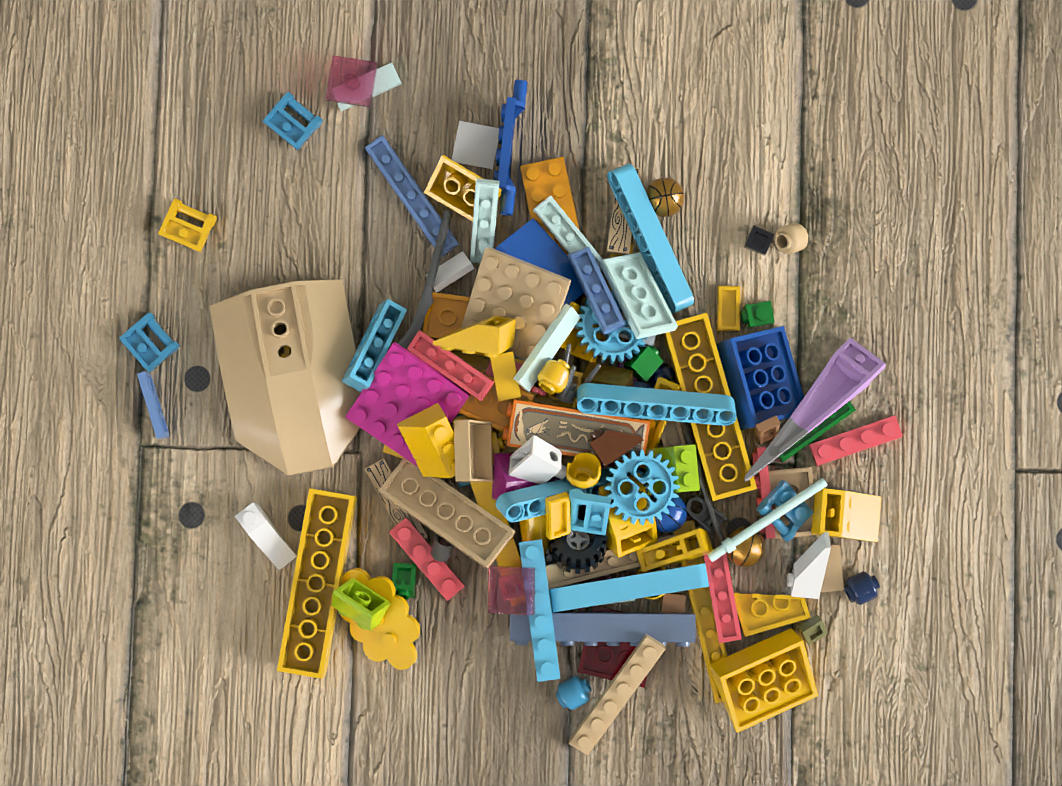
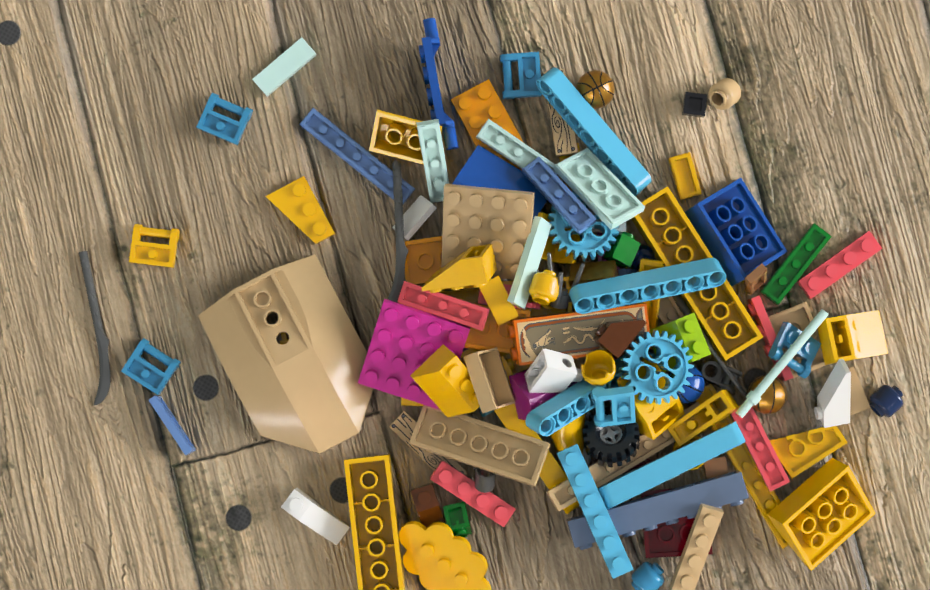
camera: 20 degrees left, 0 degrees up
(109, 301) = (102, 340): none -> dark grey piece
(343, 231) = (303, 209): none -> yellow wing
(351, 81) = (269, 65): clear pink plate -> none
(360, 604) = (424, 555): lime slope -> none
(374, 345) = (364, 307): medium azure brick -> none
(379, 556) = (427, 504): none -> reddish brown slope
(475, 145) = (403, 91): white sticker -> none
(511, 590) = (563, 500): clear pink plate -> none
(557, 515) = (586, 417): yellow tile -> none
(604, 161) = (528, 74): none -> dark azure plate
(757, 314) = (713, 174): green bracket -> none
(813, 629) = (853, 453): olive plate -> none
(841, 380) = (810, 212): lavender plate -> none

